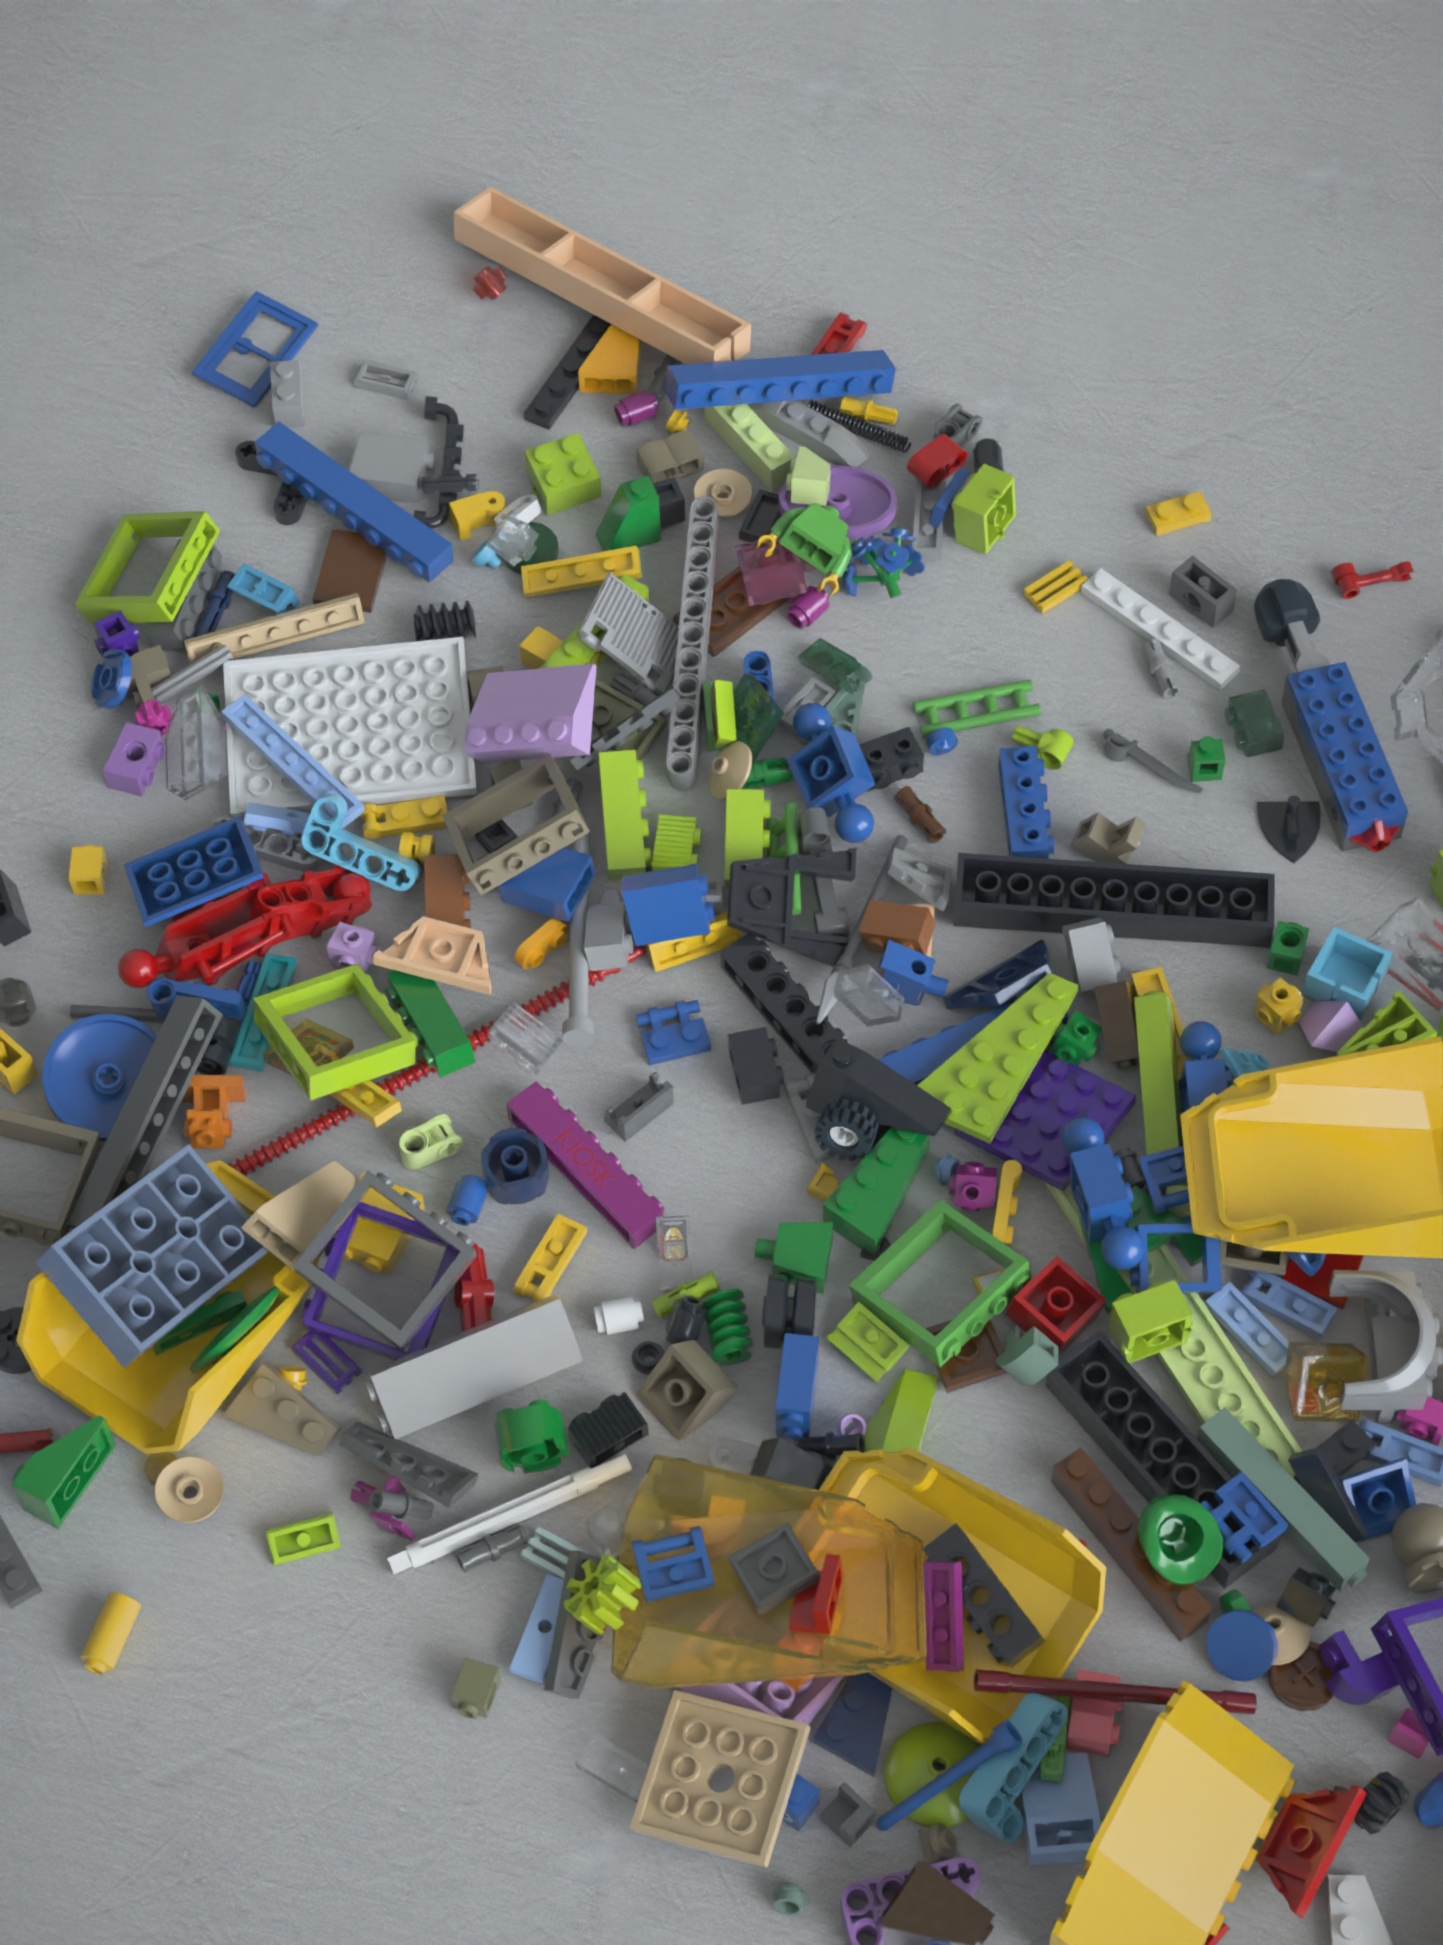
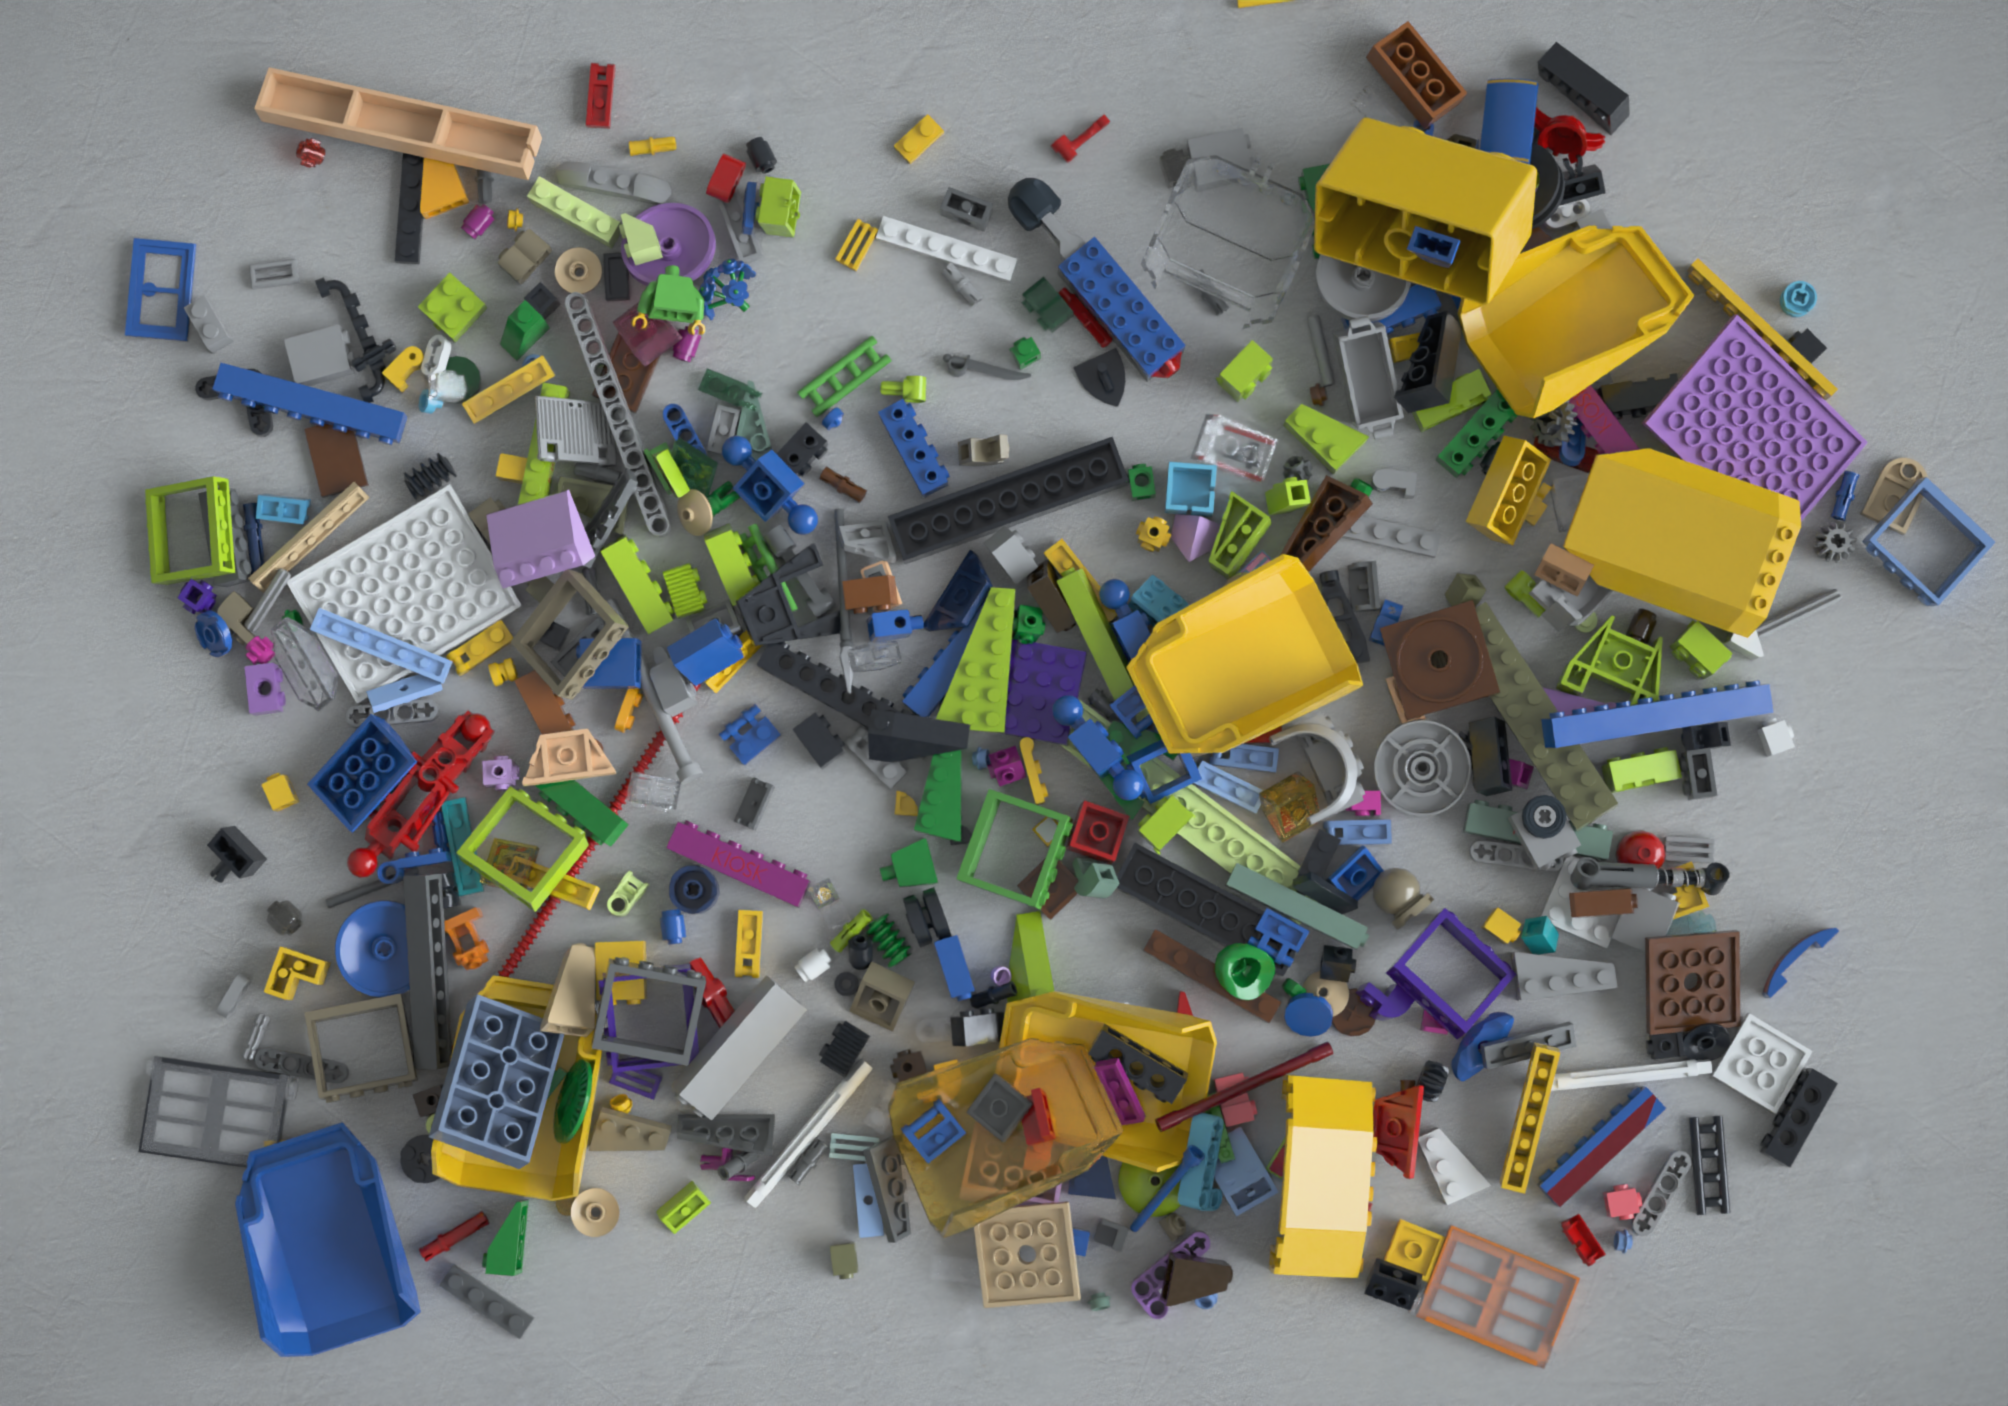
camera: 20 degrees left, 25 degrees up
(109, 1633) = (595, 1329): yellow brick -> none
(362, 848) = (465, 699): medium azure beam -> none
(531, 1437) = (799, 1080): green brick -> none
(602, 1594) = (899, 1174): lime gear -> none
(779, 379) = (578, 159): blue brick -> none
(853, 1120) = (905, 769): black bush -> none
(856, 423) = (645, 166): black piece -> none
(868, 1342) = (984, 909): lime plate -> none
(958, 425) = (724, 133): dark grey piece -> none
(1297, 759) = (1084, 316): none -> red piece

